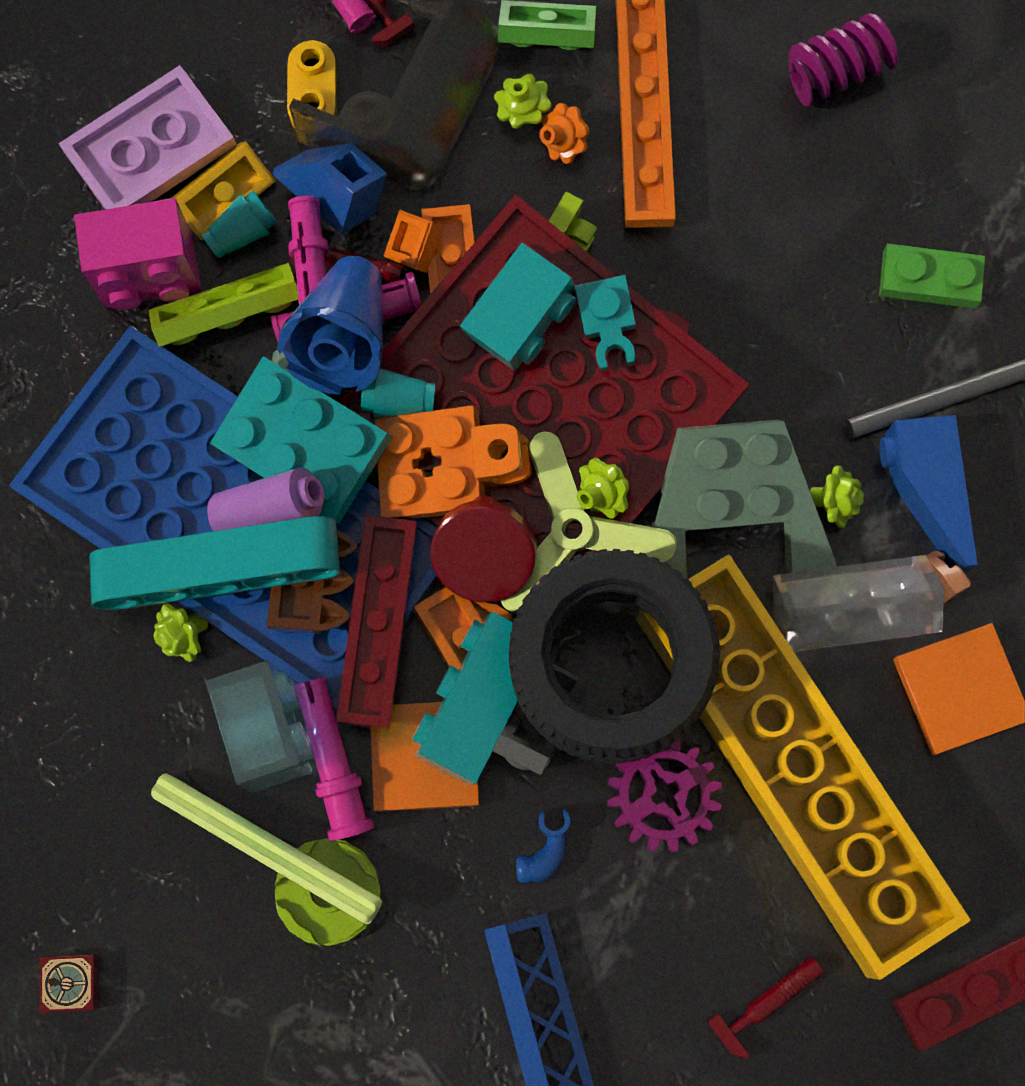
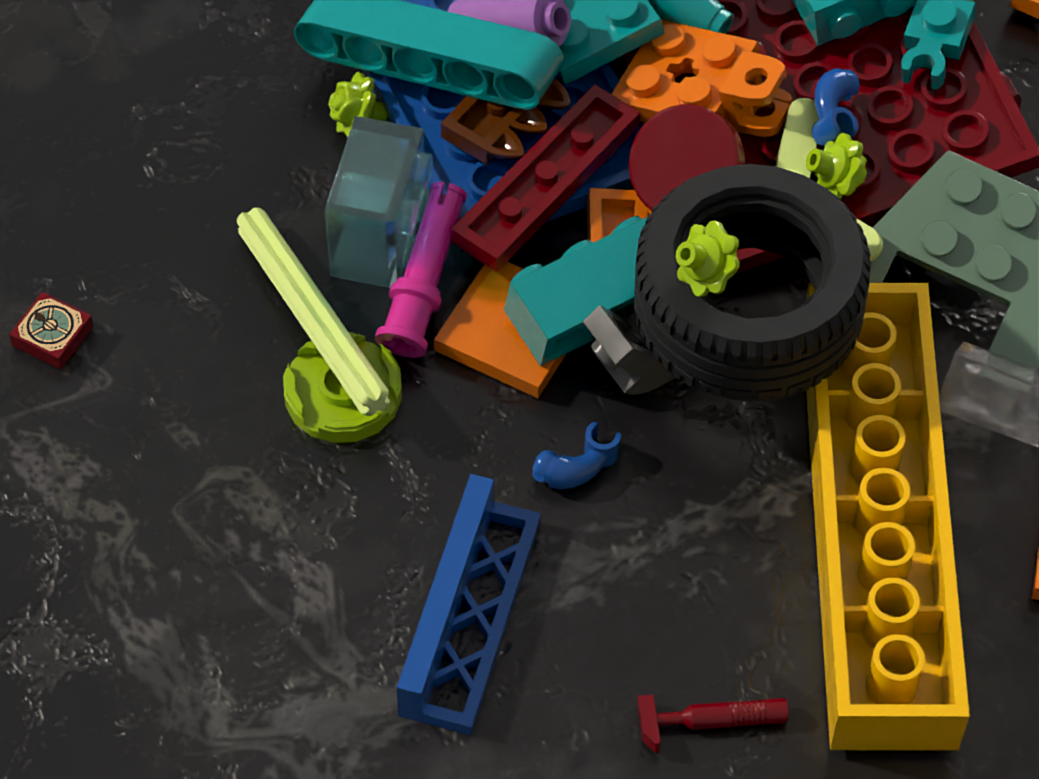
camera: 30 degrees right, 20 degrees down
(555, 417) = (833, 120): none -> blue arm
(592, 693) = (707, 258): none -> lime plant
(676, 817) = (698, 478): magenta gear -> none

